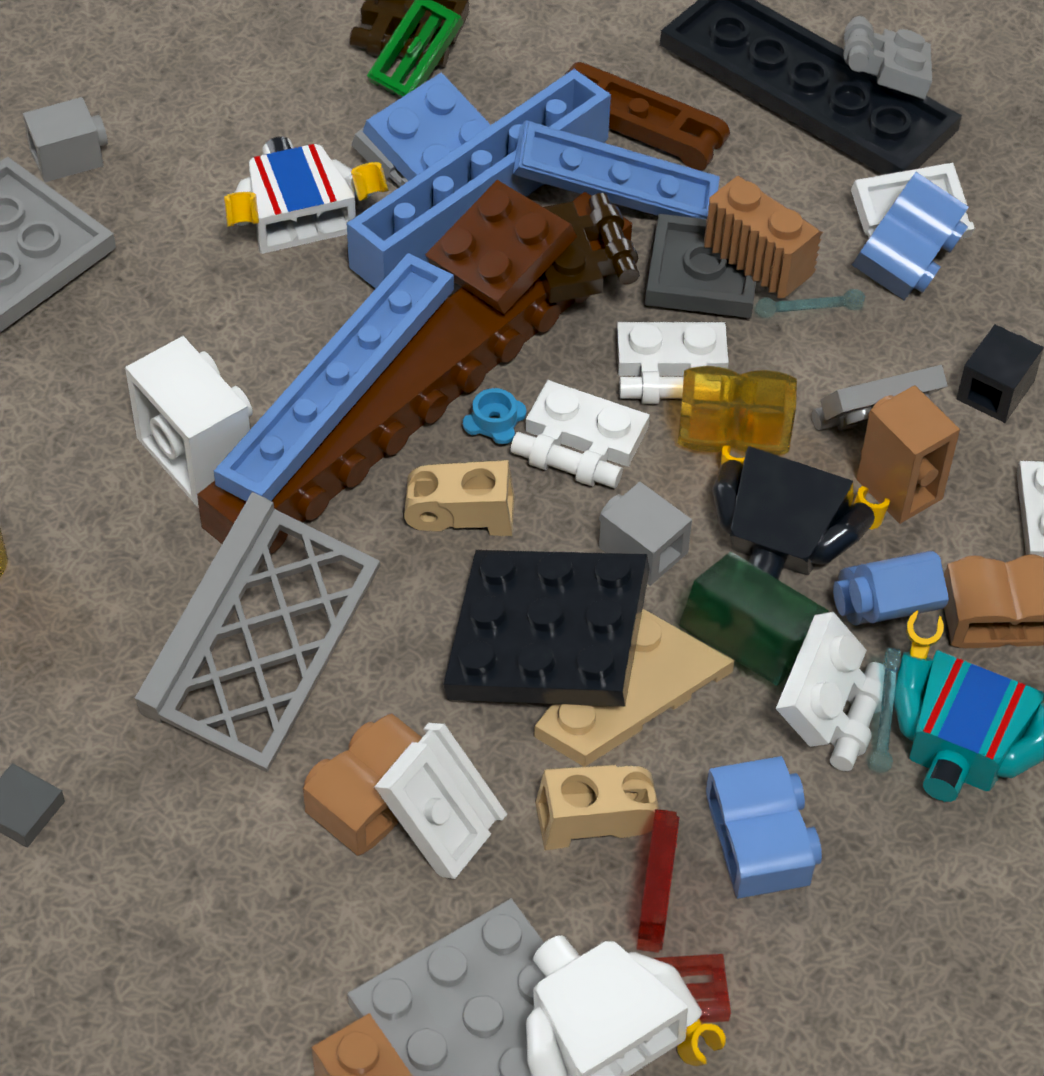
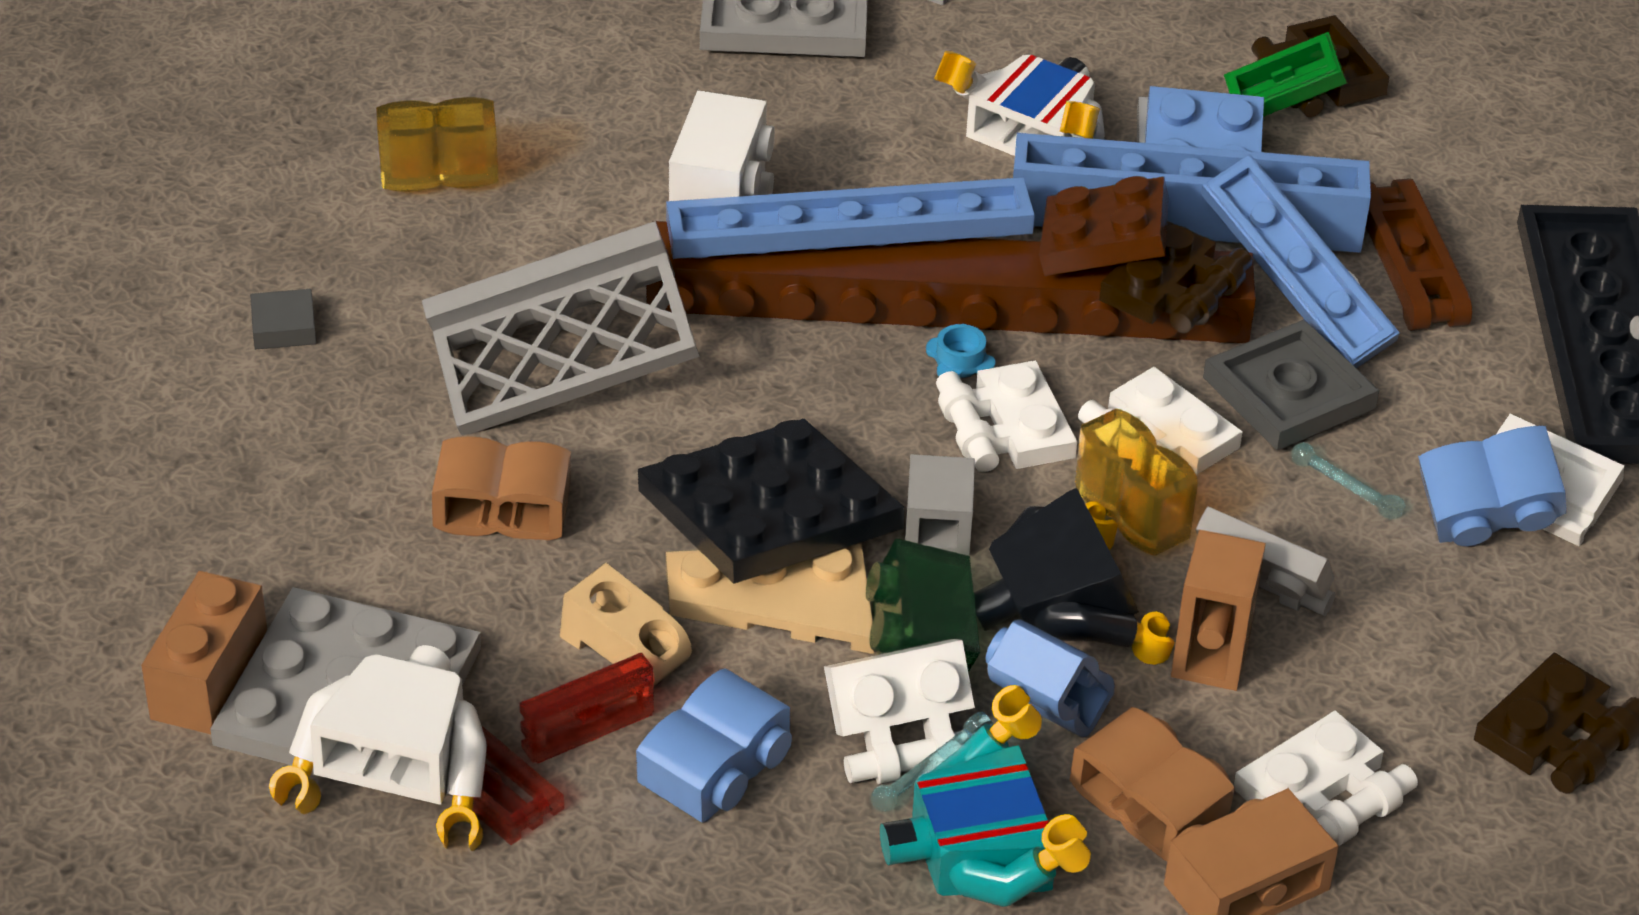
camera: 50 degrees right, 10 degrees down
(440, 800) = (513, 523): white plate -> none
(461, 497) = (848, 381): tan leg -> none
(761, 236) = (1342, 380): medium nougat brick -> none
(999, 373) = (1420, 638): black brick -> none

